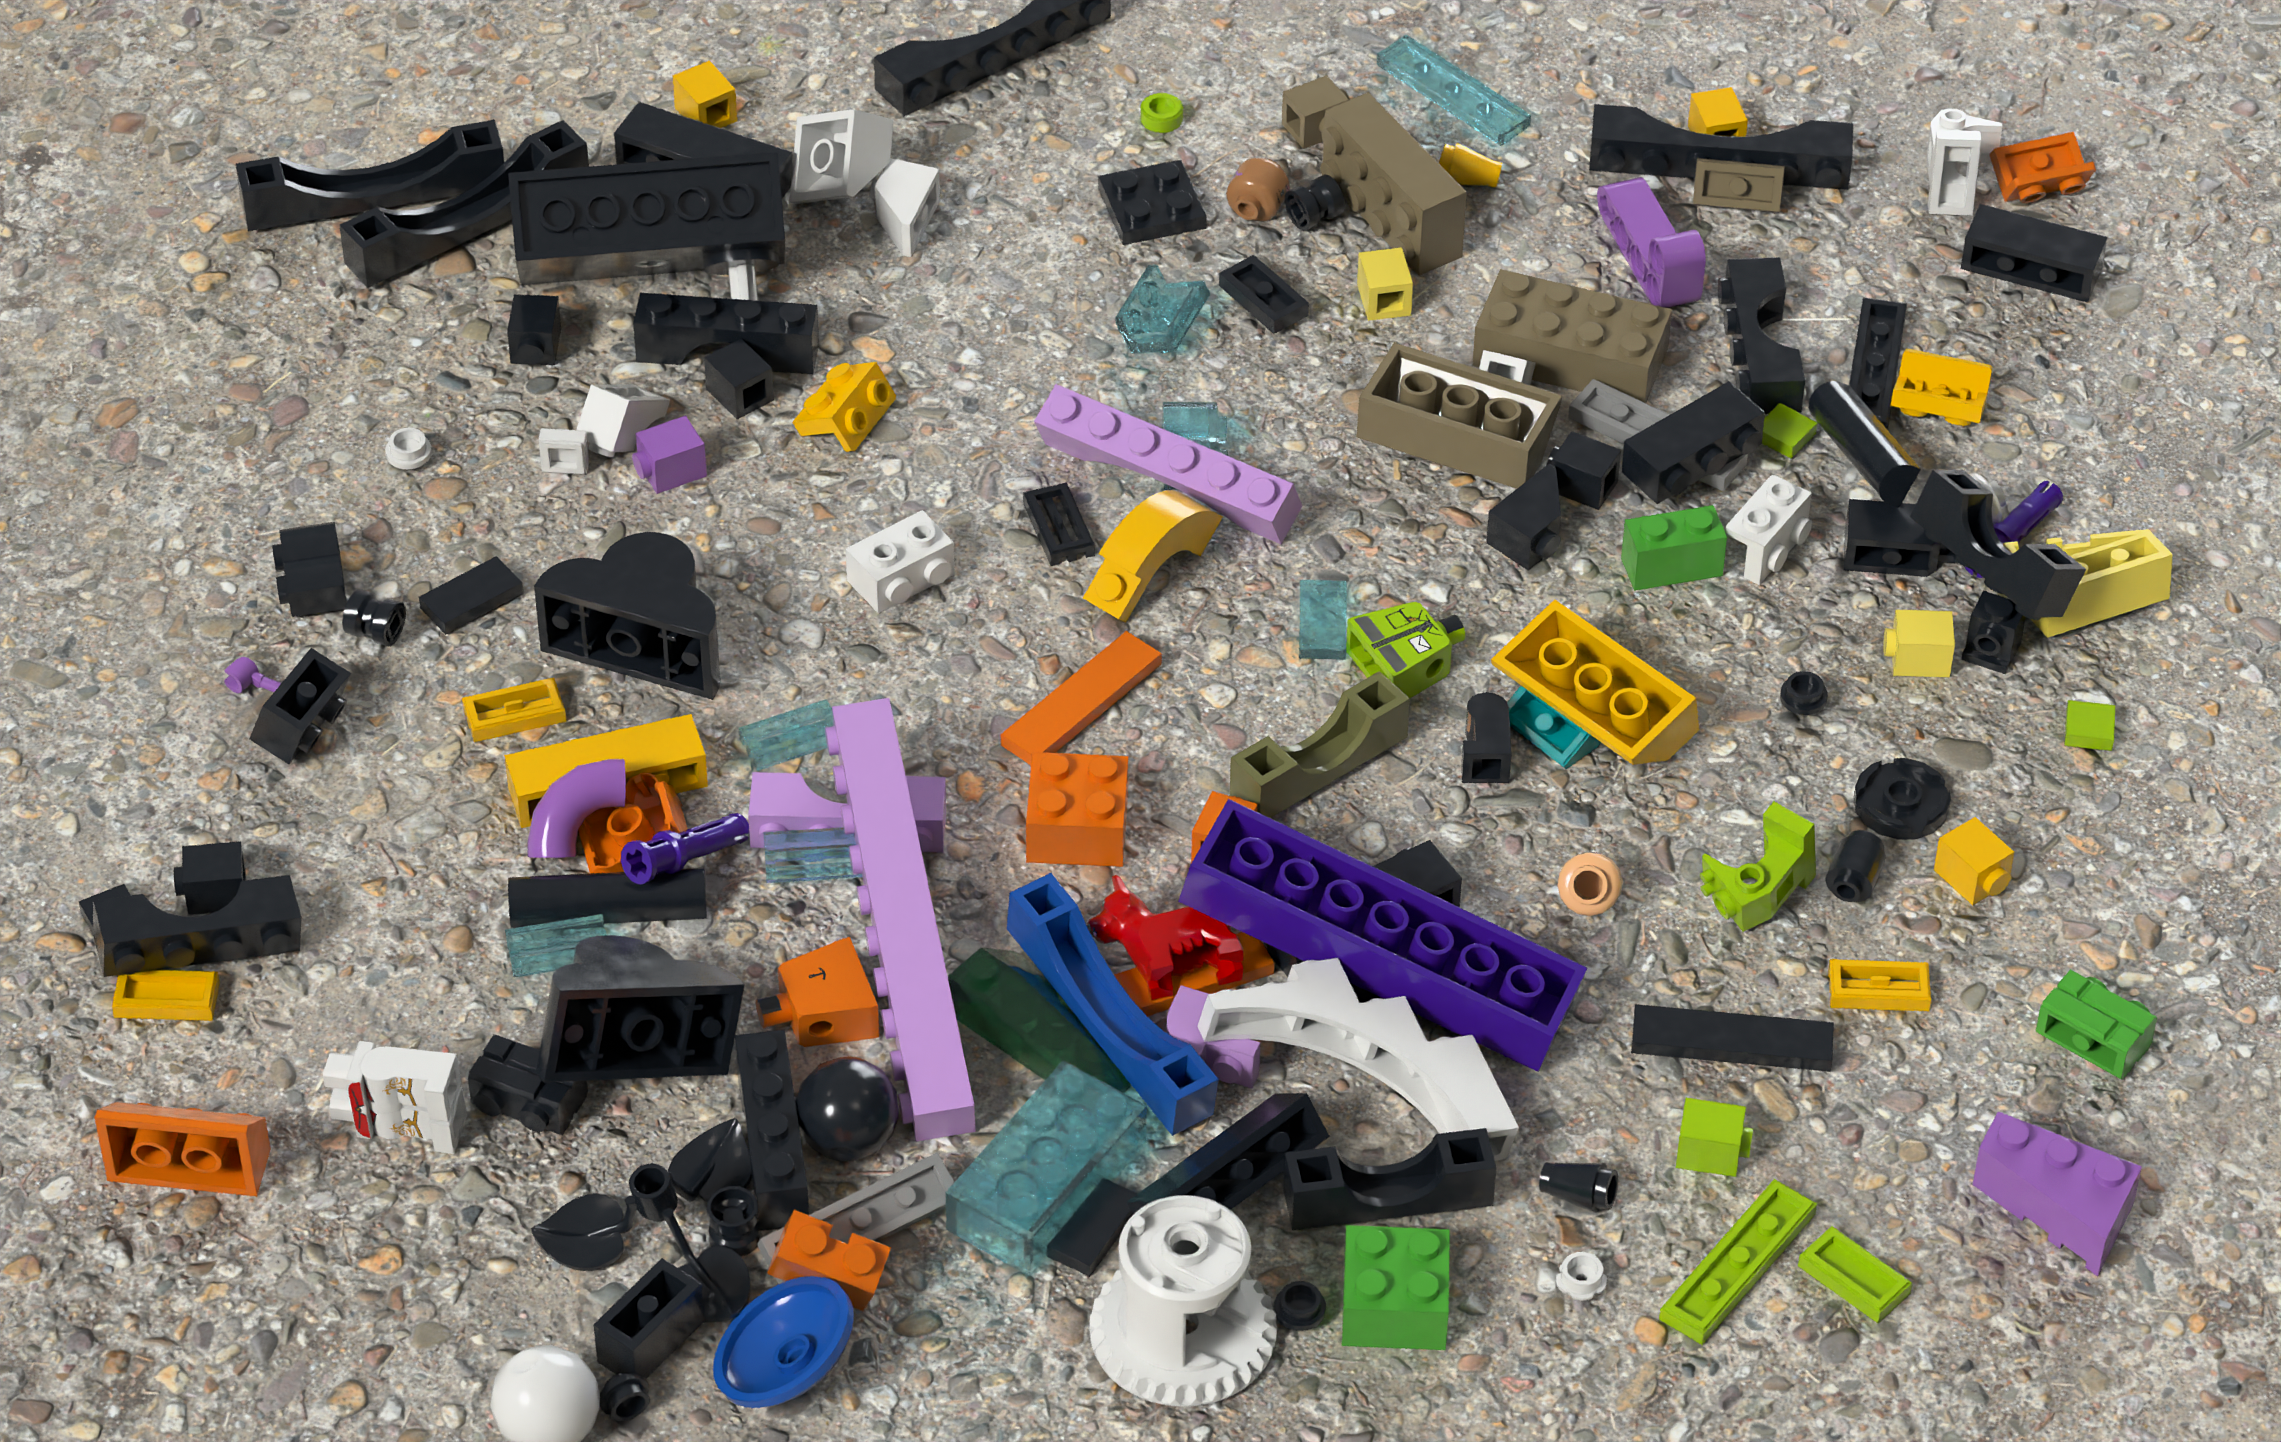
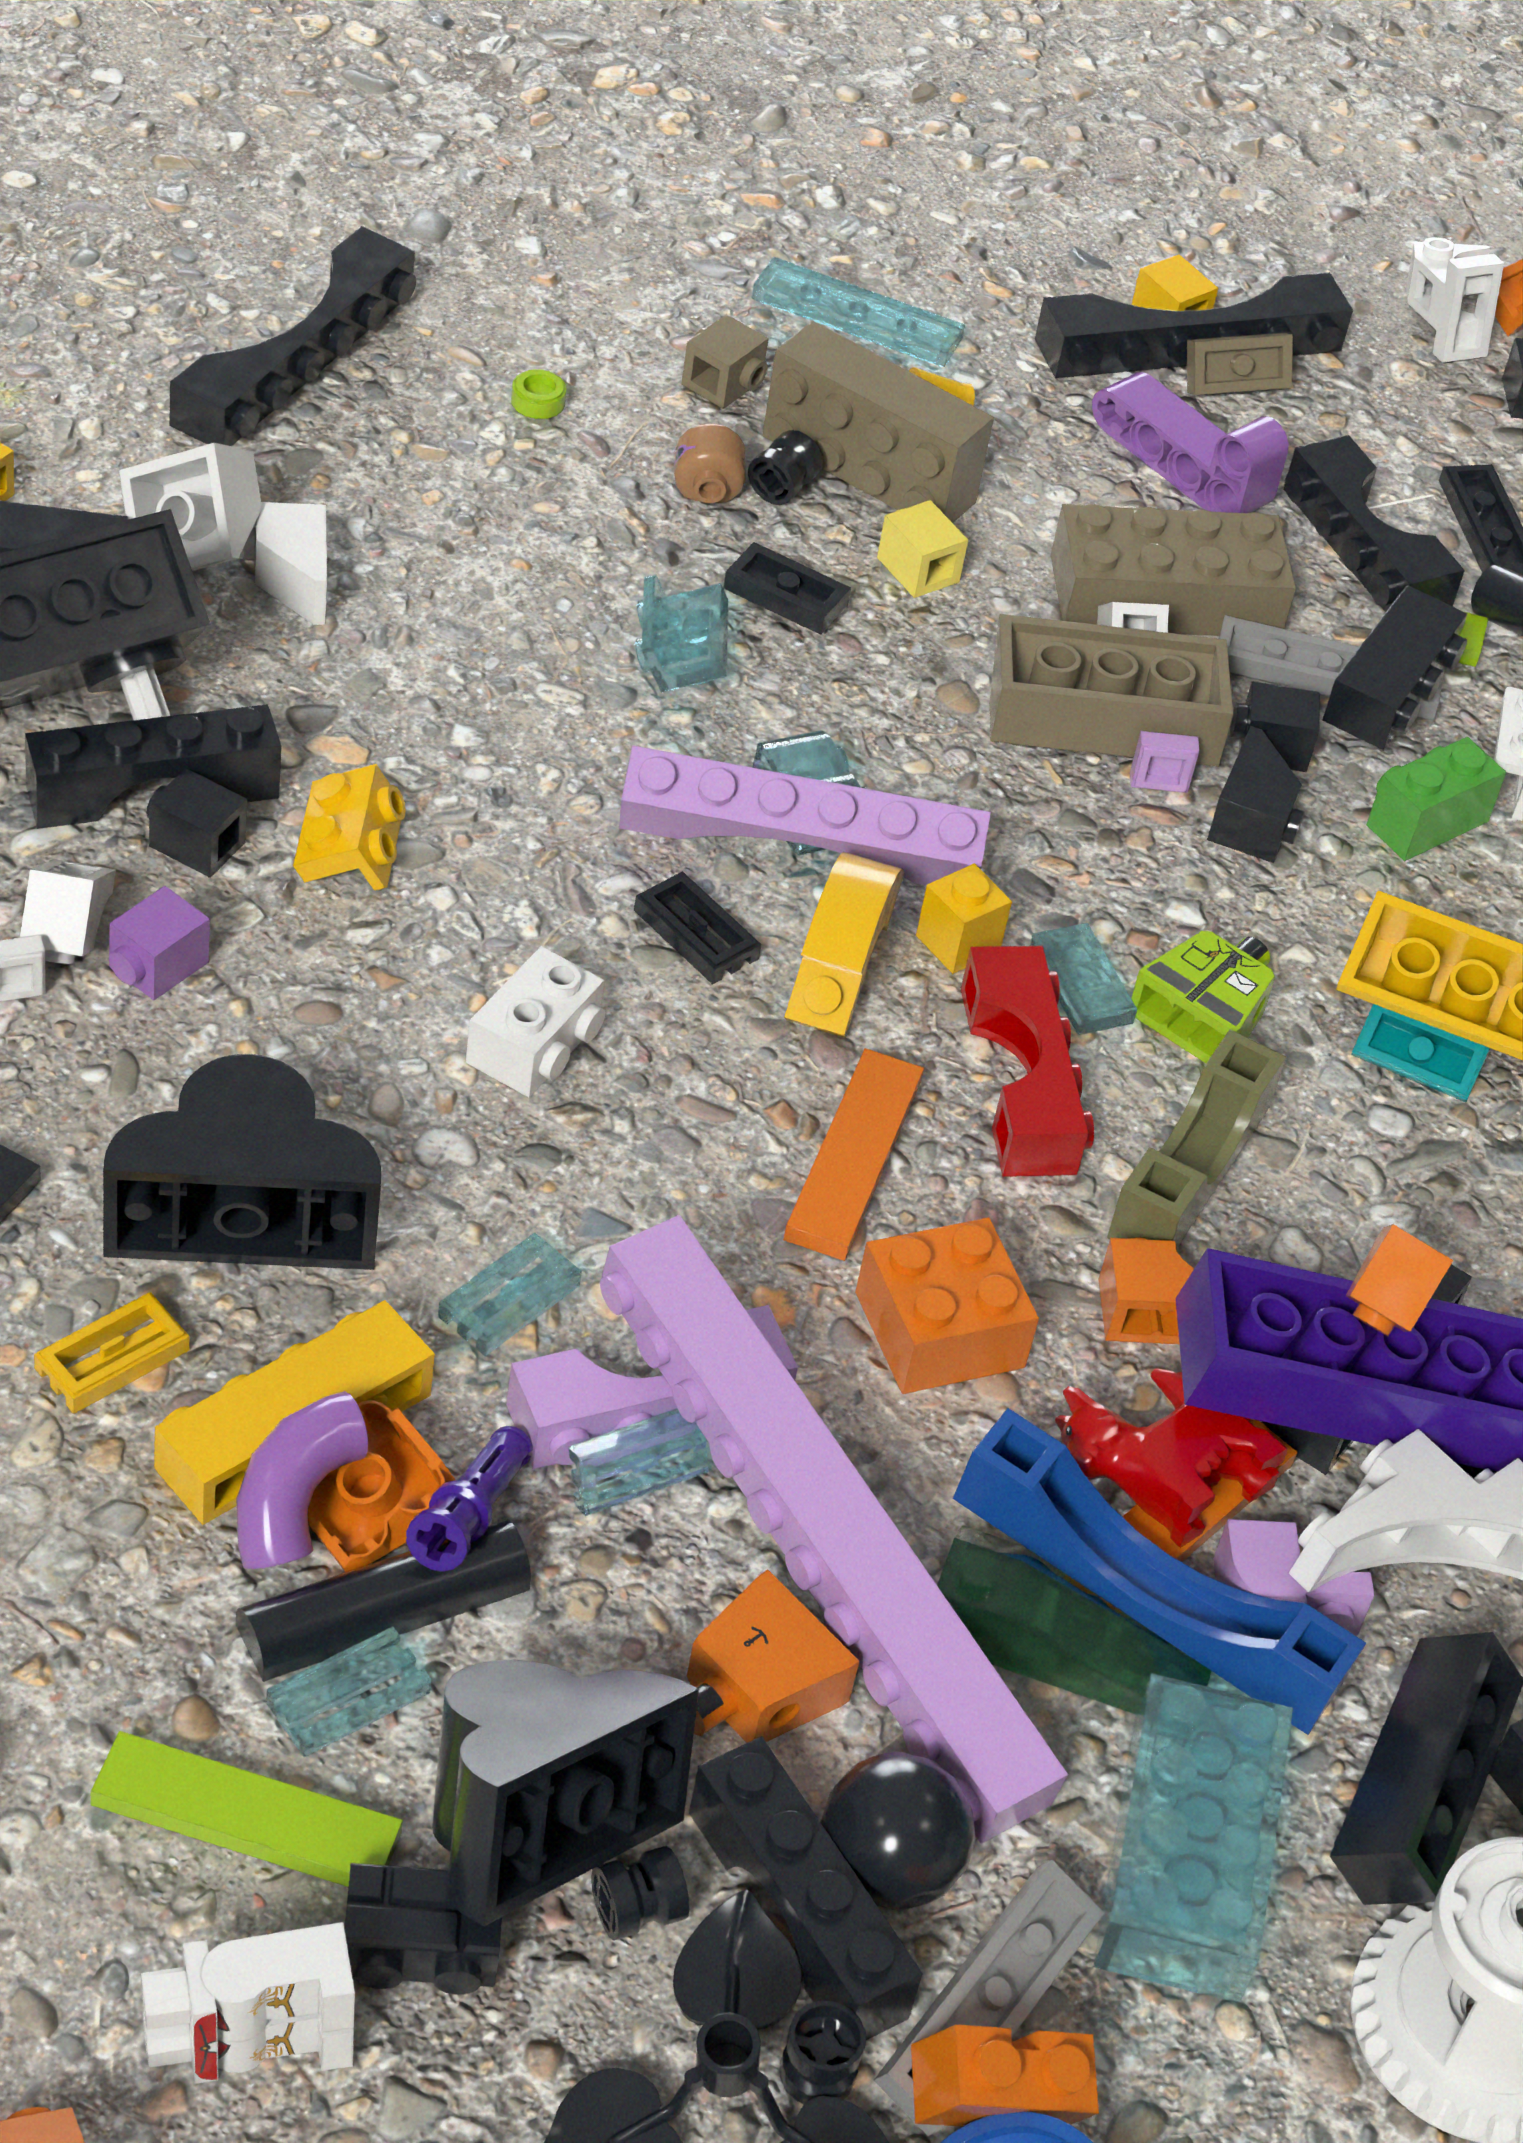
camera: 30 degrees left, 0 degrees up
(454, 992) = (242, 1810): none -> lime tile
(671, 1103) = (640, 1892): none -> black wheel
(1093, 1229) = (1295, 1905): black tile -> none
(1152, 202) = (587, 502): black plate -> none
(1224, 701) = (1041, 1116): none -> red arch
(1248, 557) = (961, 914): none -> yellow brick
(1351, 849) = (1396, 1280): none -> orange slope
(1476, 478) = (1164, 761): none -> lavender tile
(1488, 742) = (1374, 1086): black leg -> none

